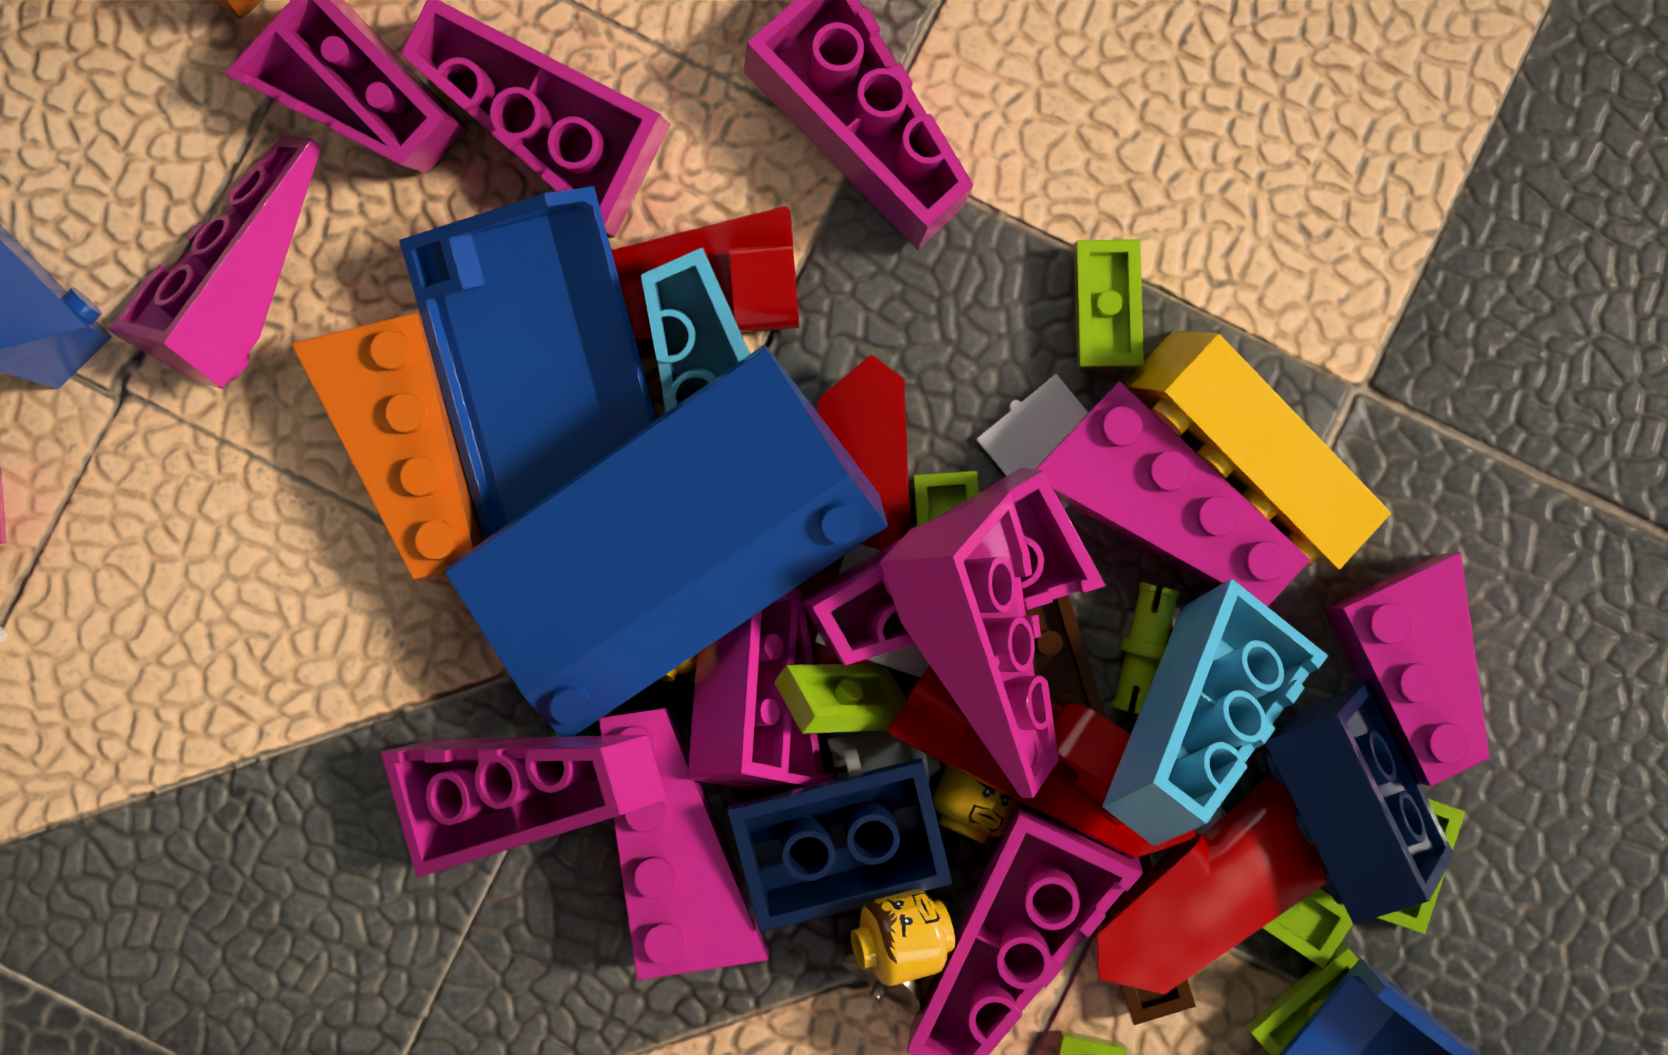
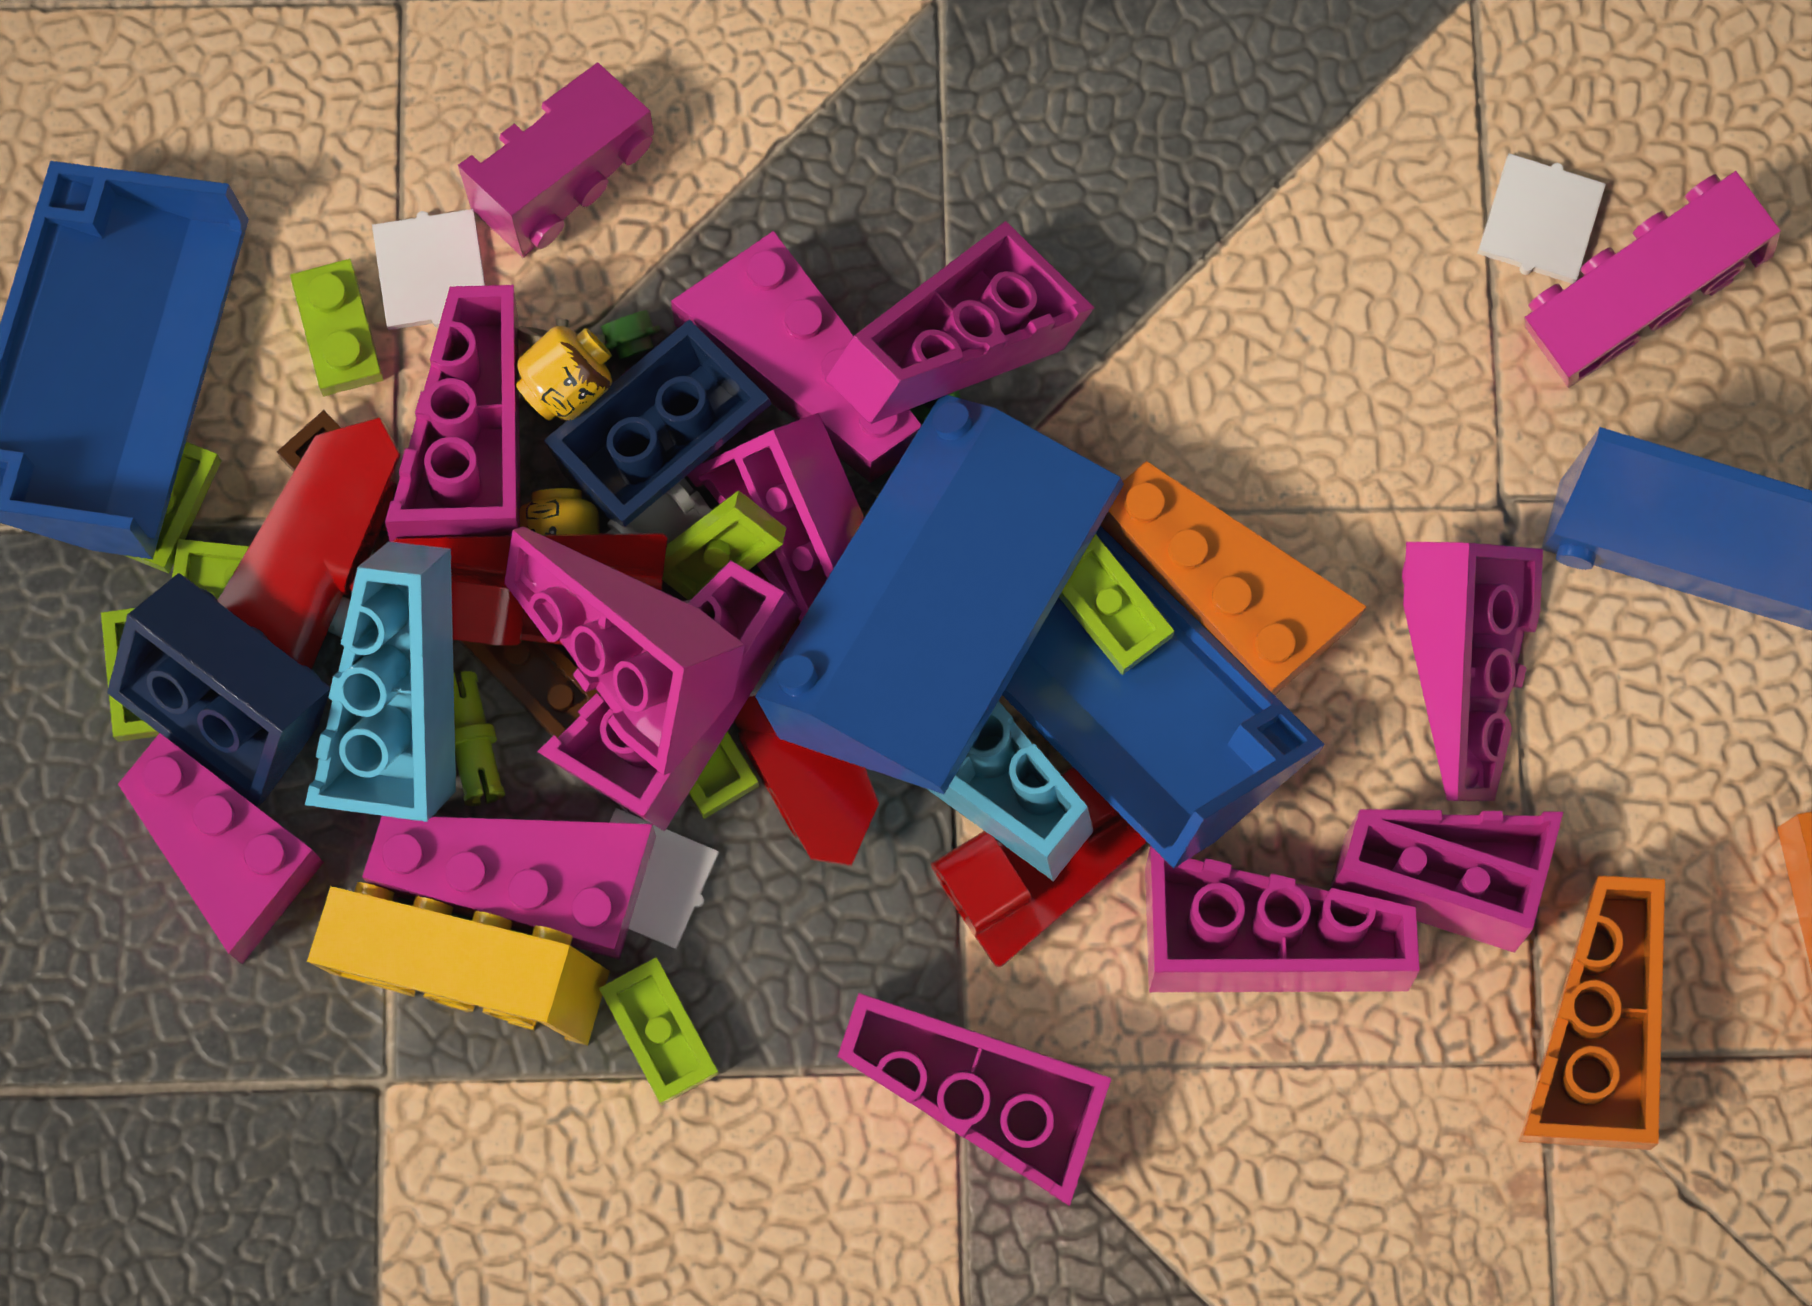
camera: 145 degrees right, 10 degrees down
(516, 455) = (1114, 609): none -> lime plate
(817, 954) = (630, 334): none -> bright green plate

